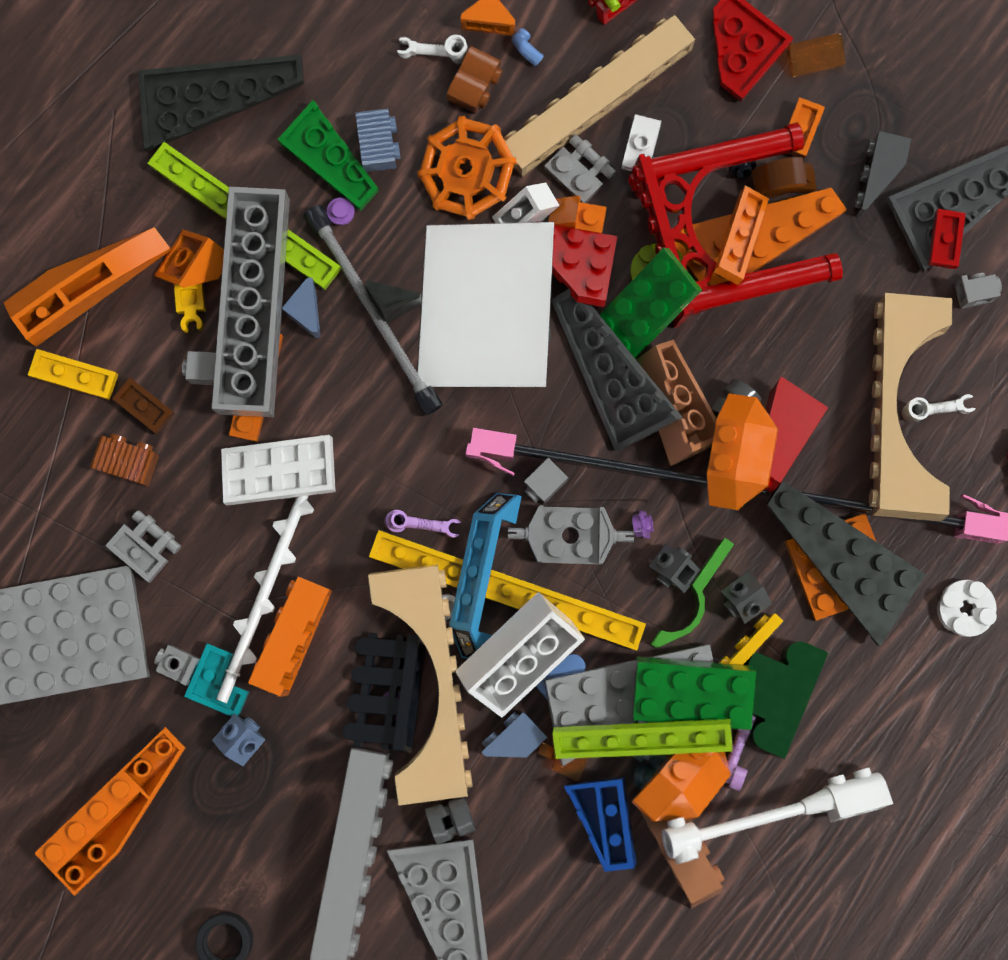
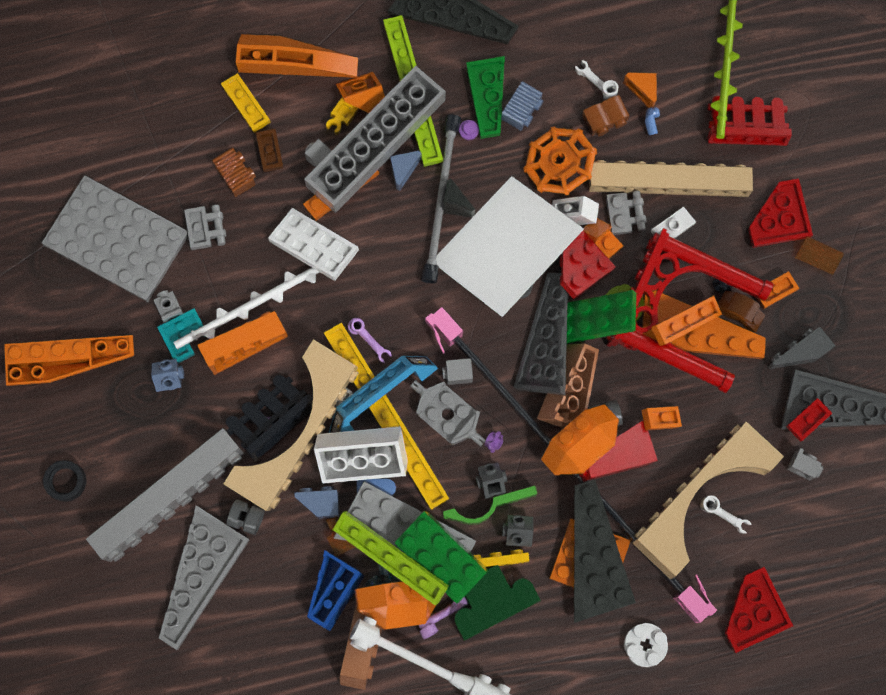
camera: 35 degrees right, 5 degrees down
(795, 359) = (661, 418): none -> orange plate

